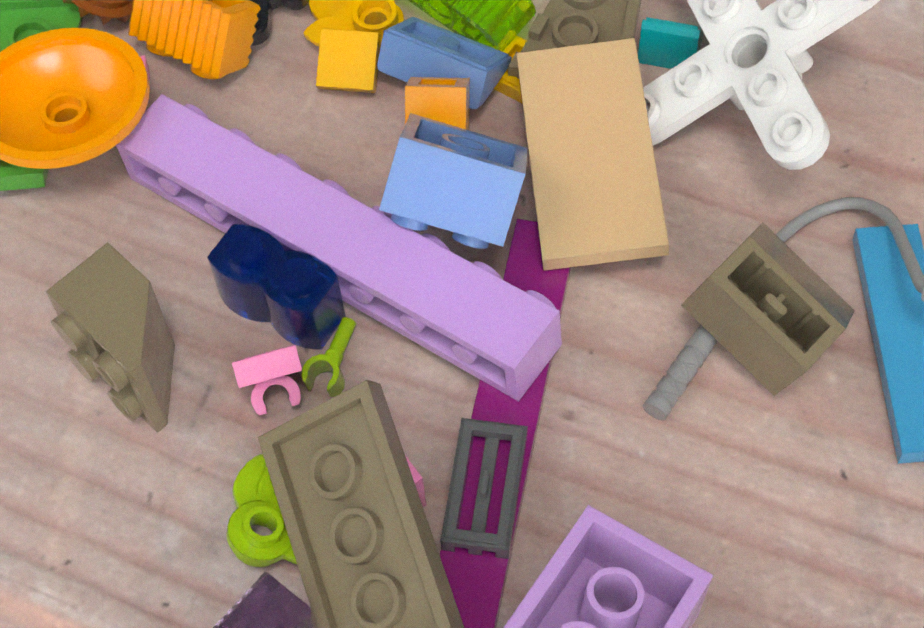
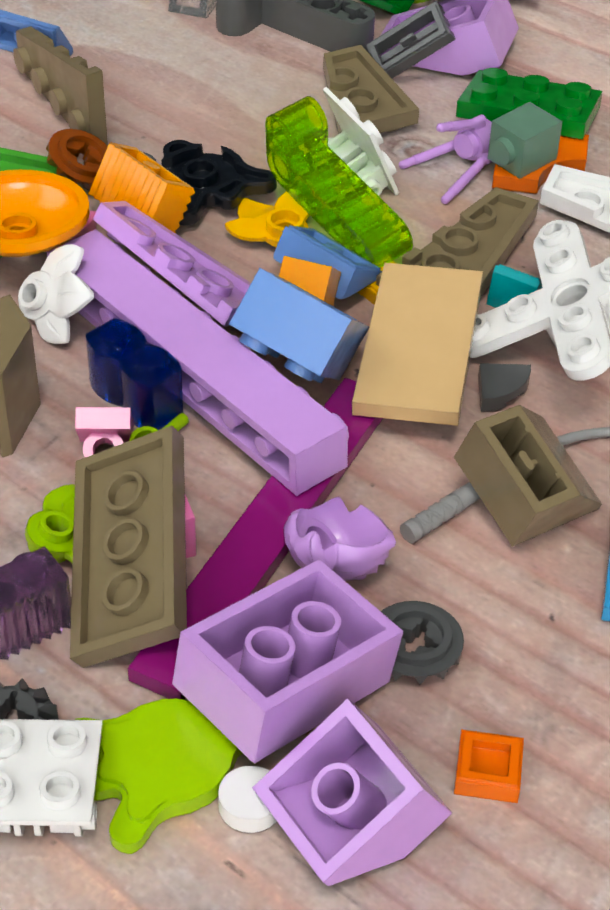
camera: 10 degrees right, 15 degrees down
(144, 198) = (55, 294): none -> white plate
(295, 122) = (177, 260): none -> lavender wing
(348, 60) = (251, 246): yellow tile -> none
(477, 539) = (228, 575): dark grey tile -> none
(588, 453) = (342, 539): none -> lavender hair
(692, 176) = (501, 384): none -> dark grey tile
(737, 541) = (442, 639): none -> dark grey gear

